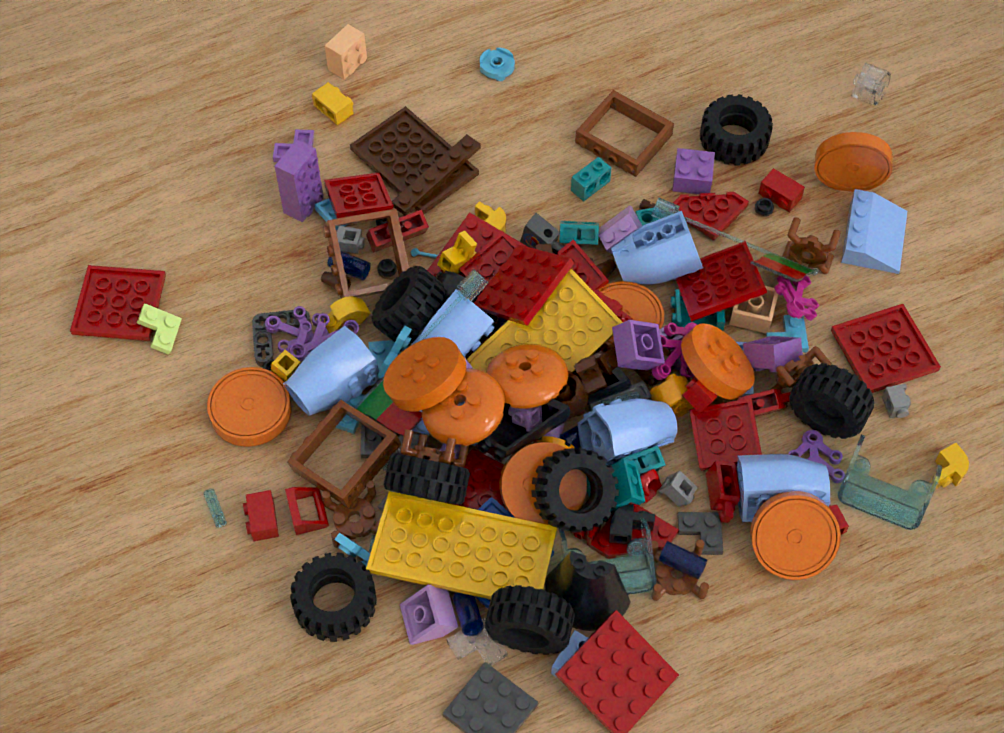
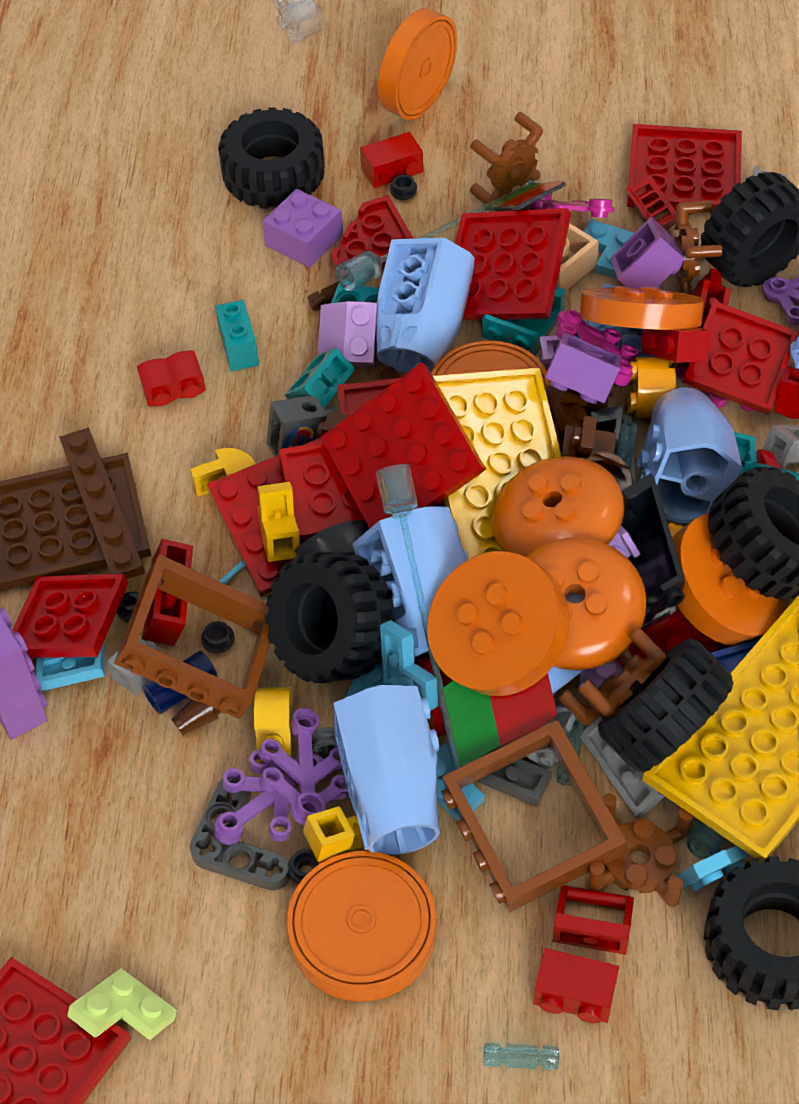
camera: 60 degrees left, 5 degrees down
(542, 164) = (171, 378): none -> red brick
(636, 112) = (174, 241): dark orange window -> none
(835, 350) = (666, 221): none -> red slope
(874, 233) = (493, 99): light blue slope -> none

